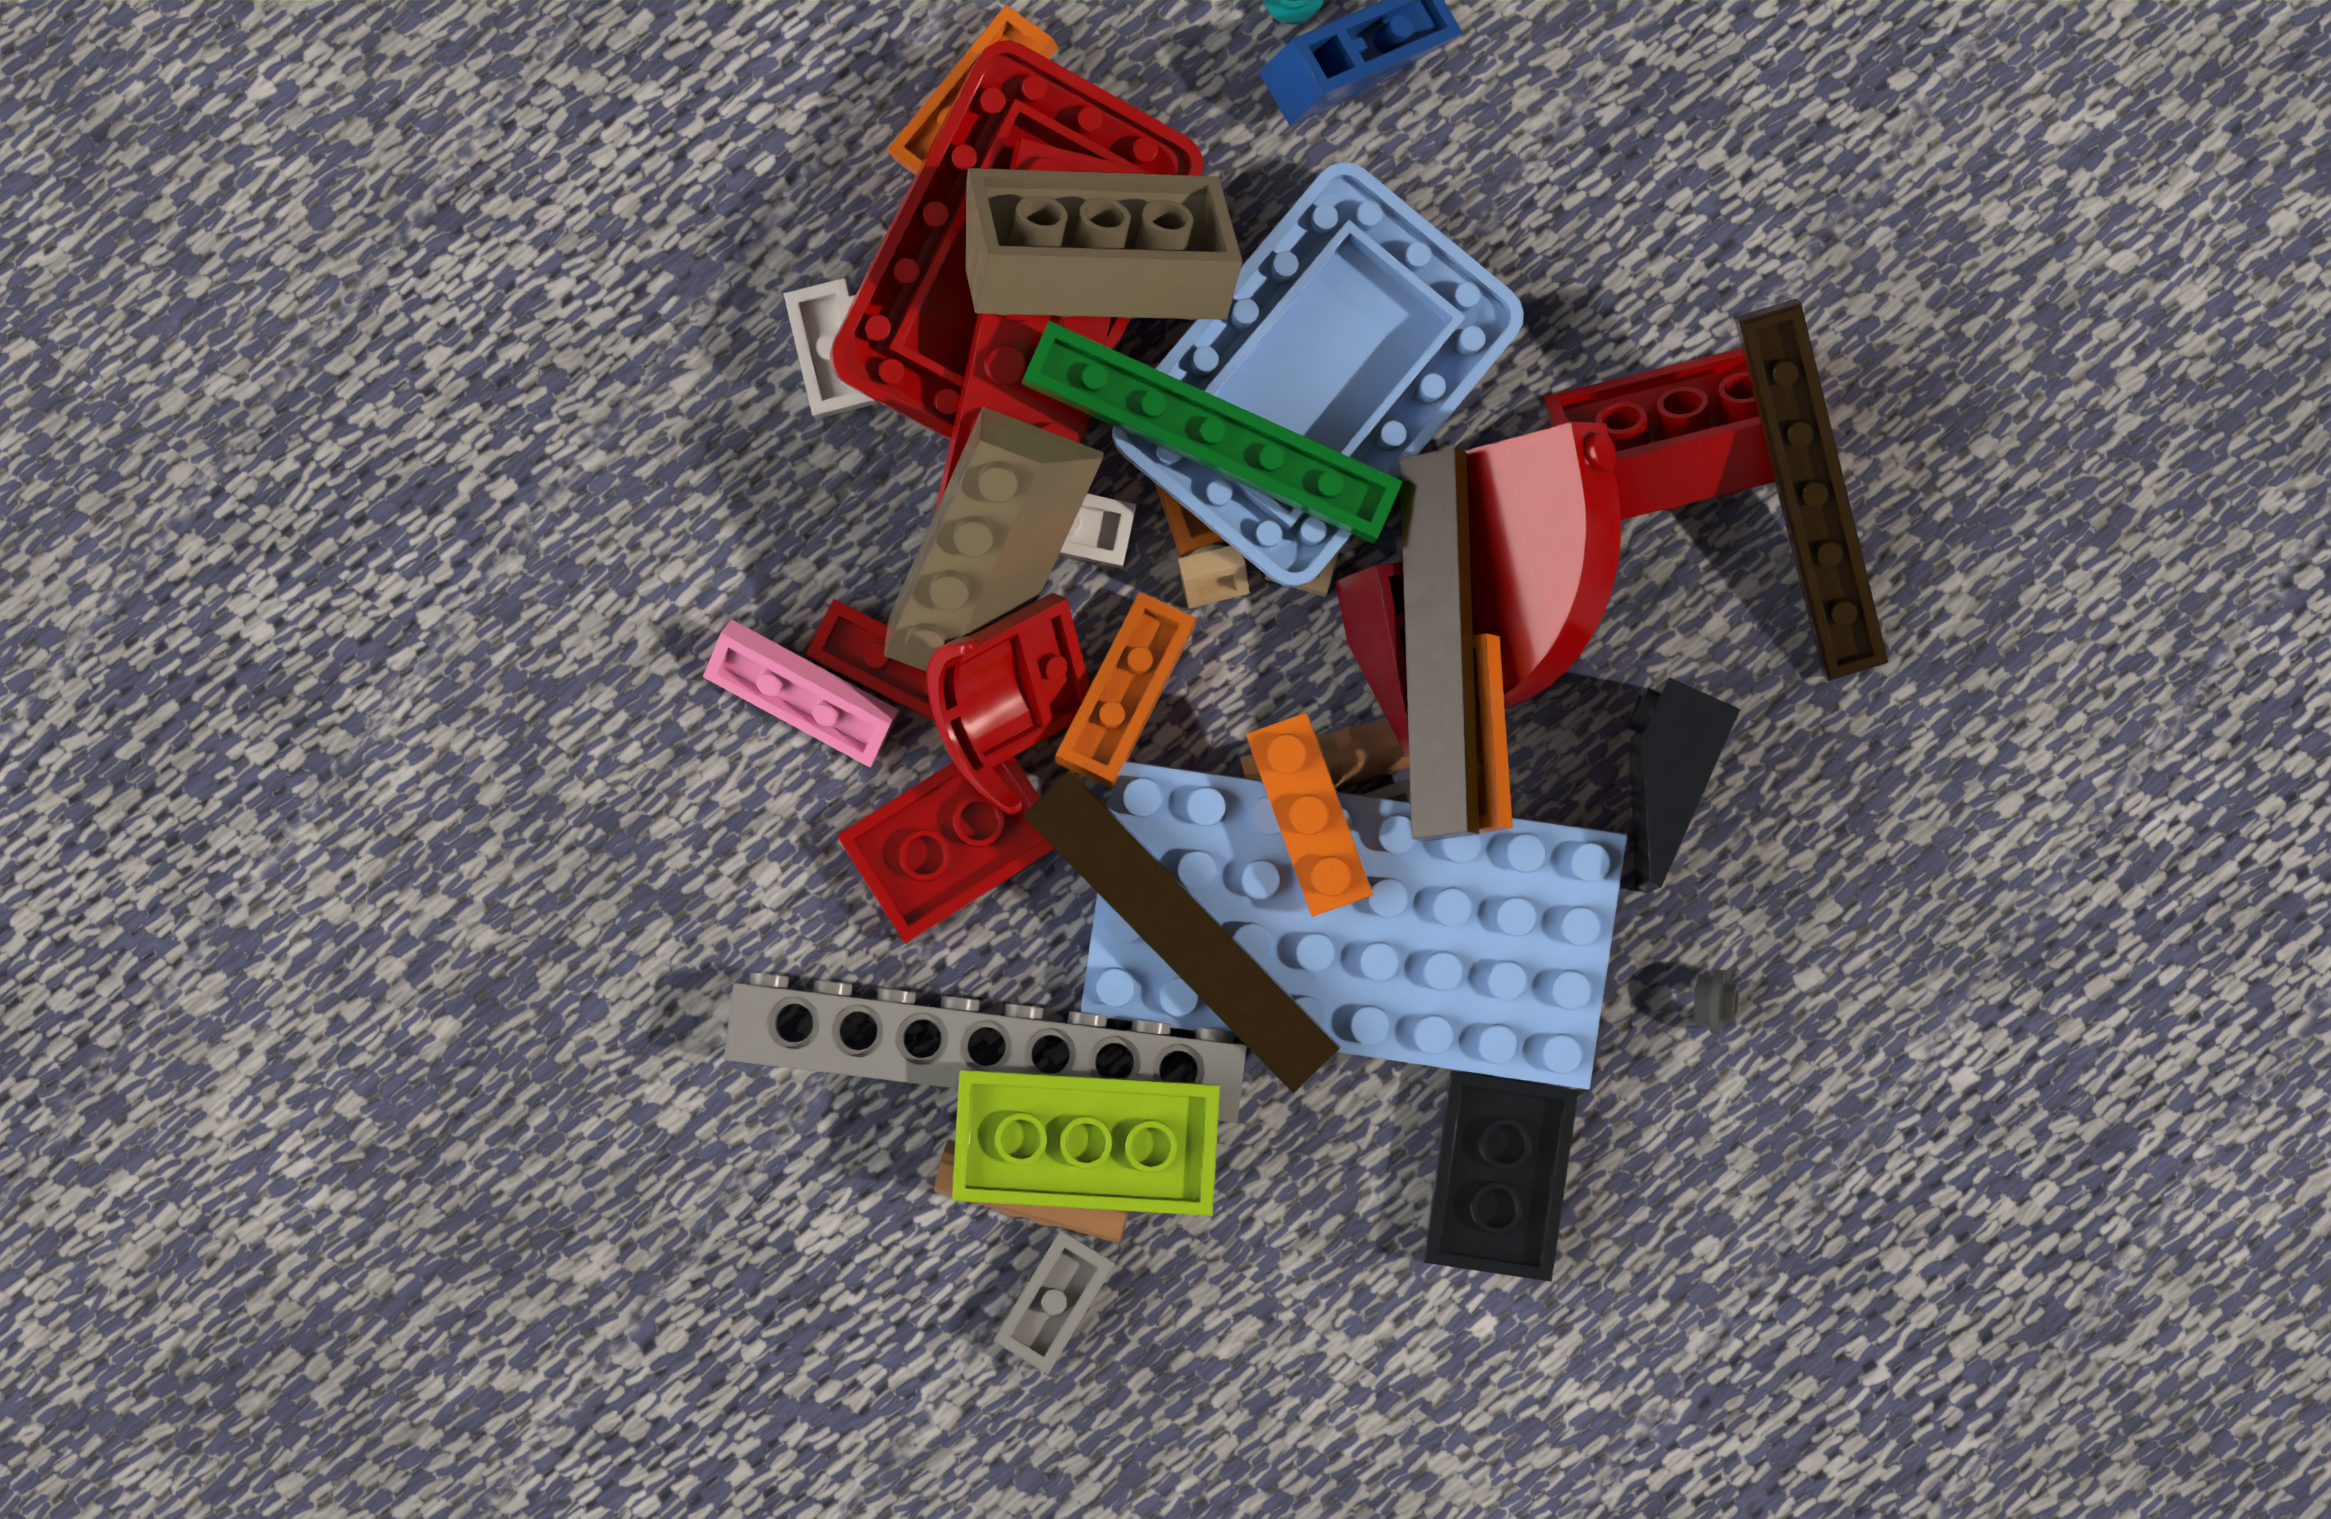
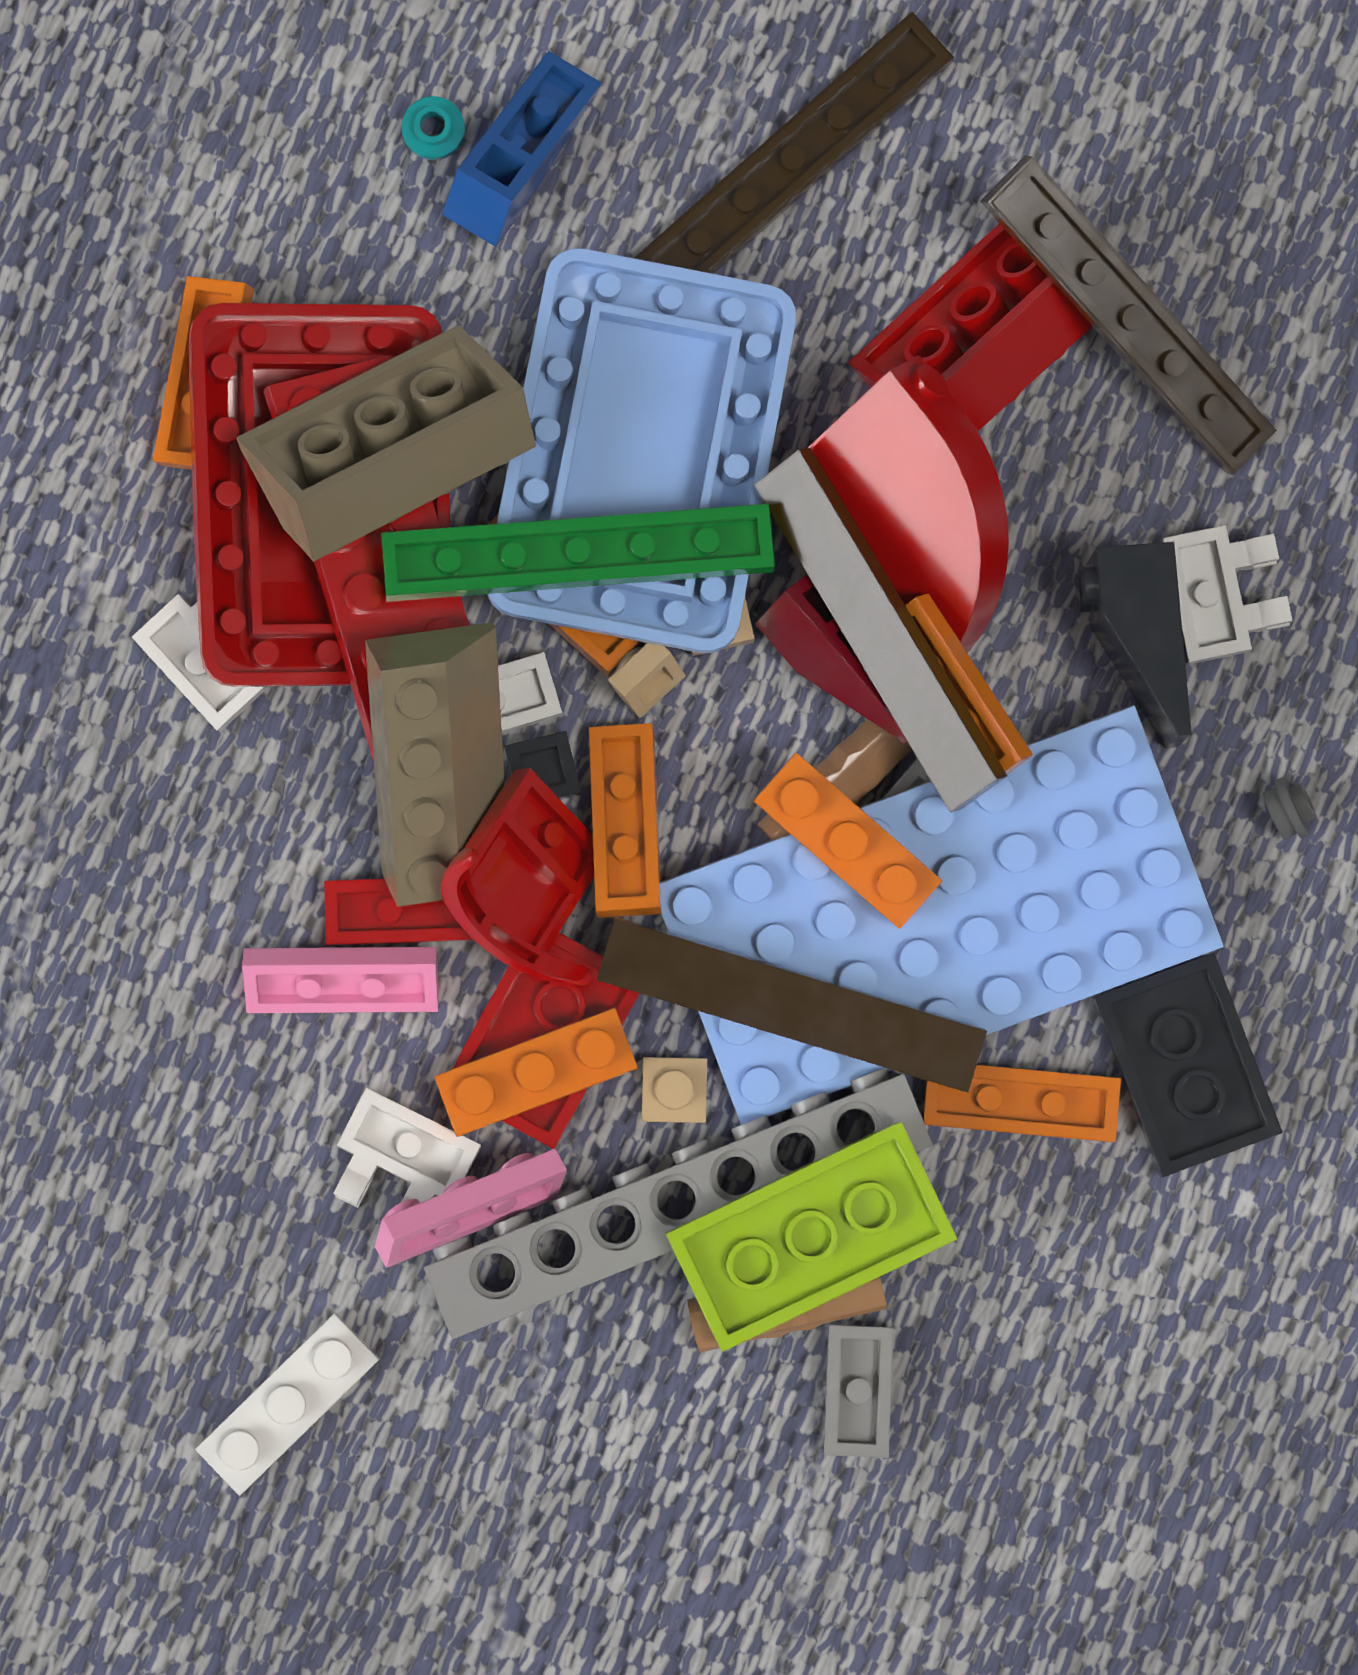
camera: 20 degrees left, 0 degrees up
(550, 1037) = (287, 1404): none -> white plate
(779, 872) = (403, 1145): none -> white plate
(802, 952) = (469, 1206): none -> bright pink plate
(925, 867) = (535, 1072): none -> orange plate
(1039, 950) = (674, 1090): none -> tan plate
(1088, 600) = (551, 761): none -> black plate
(1342, 1133) = (1028, 1104): none -> orange plate
(1607, 188) = (802, 150): none -> dark brown tile
(1747, 775) = (1209, 594): none -> white plate

